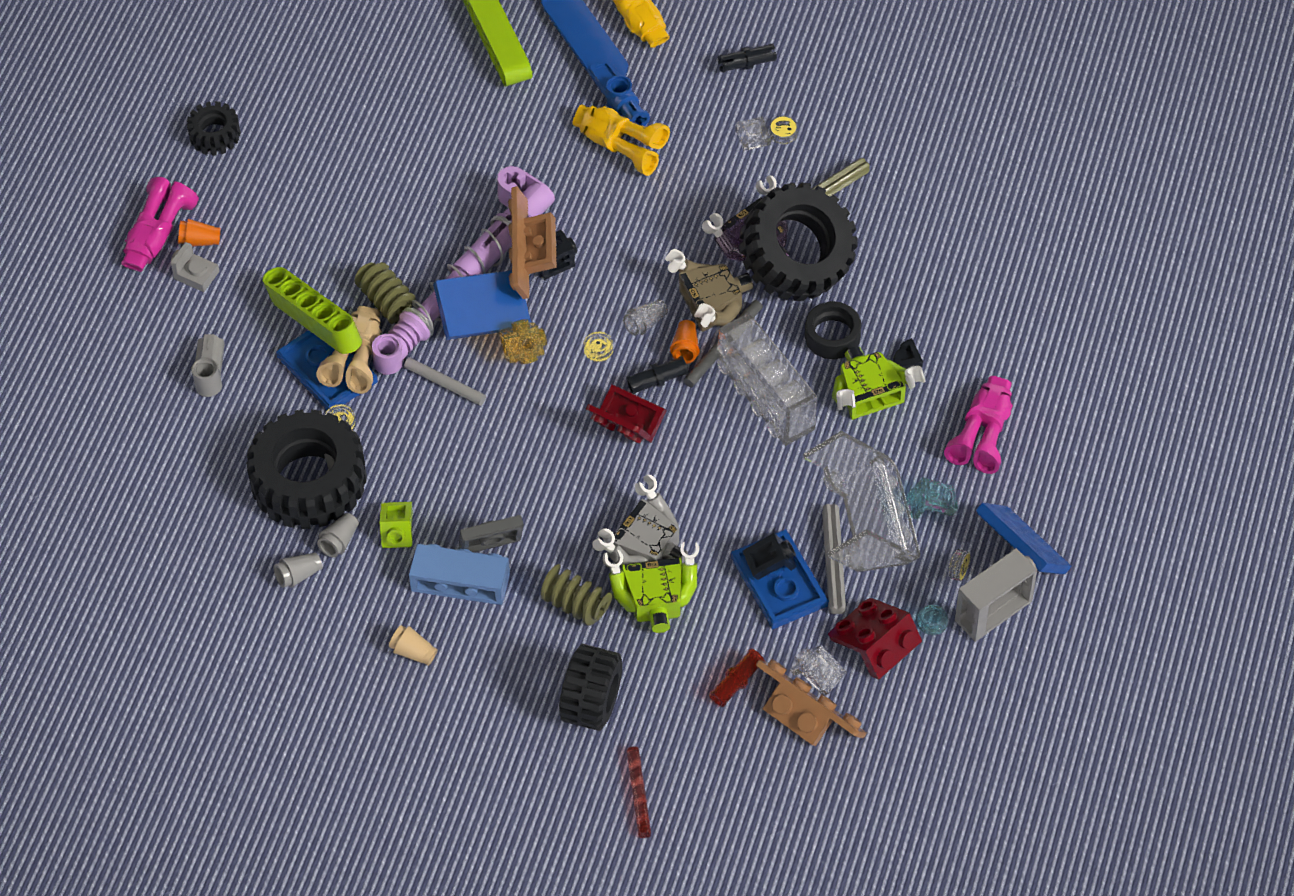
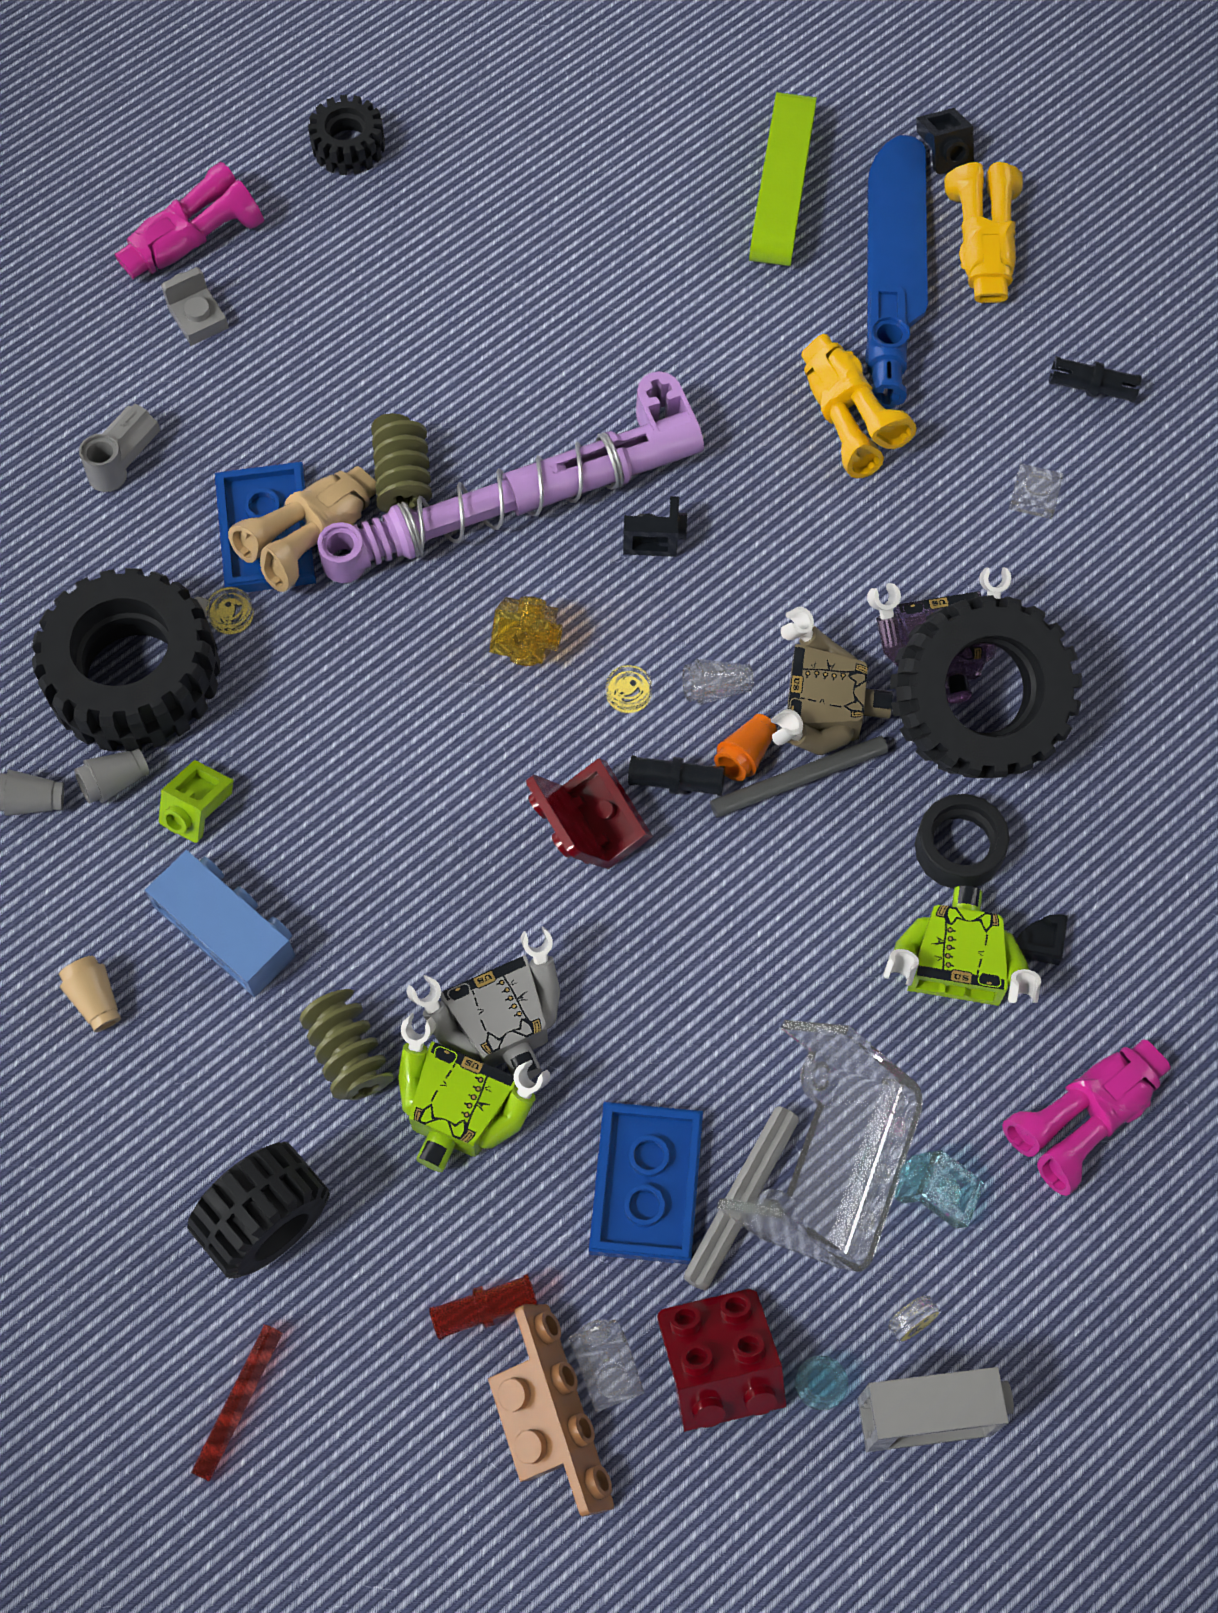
camera: 30 degrees right, 10 degrees up
(198, 233) = (228, 263): orange cone -> none
(312, 310) = (279, 443): lime beam -> none
(445, 381) = (397, 630): light grey bar -> none
(478, 304) = (504, 547): blue tile -> none
(491, 534) = (289, 890): dark grey plate -> none
(532, 242) = (617, 495): medium nougat bracket -> none
(766, 379) = (812, 870): clear brick -> none
(769, 556) = (645, 1147): black bracket -> none
(783, 129) = (1081, 506): tile -> none
(845, 177) = (1111, 621): olive axle -> none
(1023, 538) = (1031, 1339): blue tile -> none

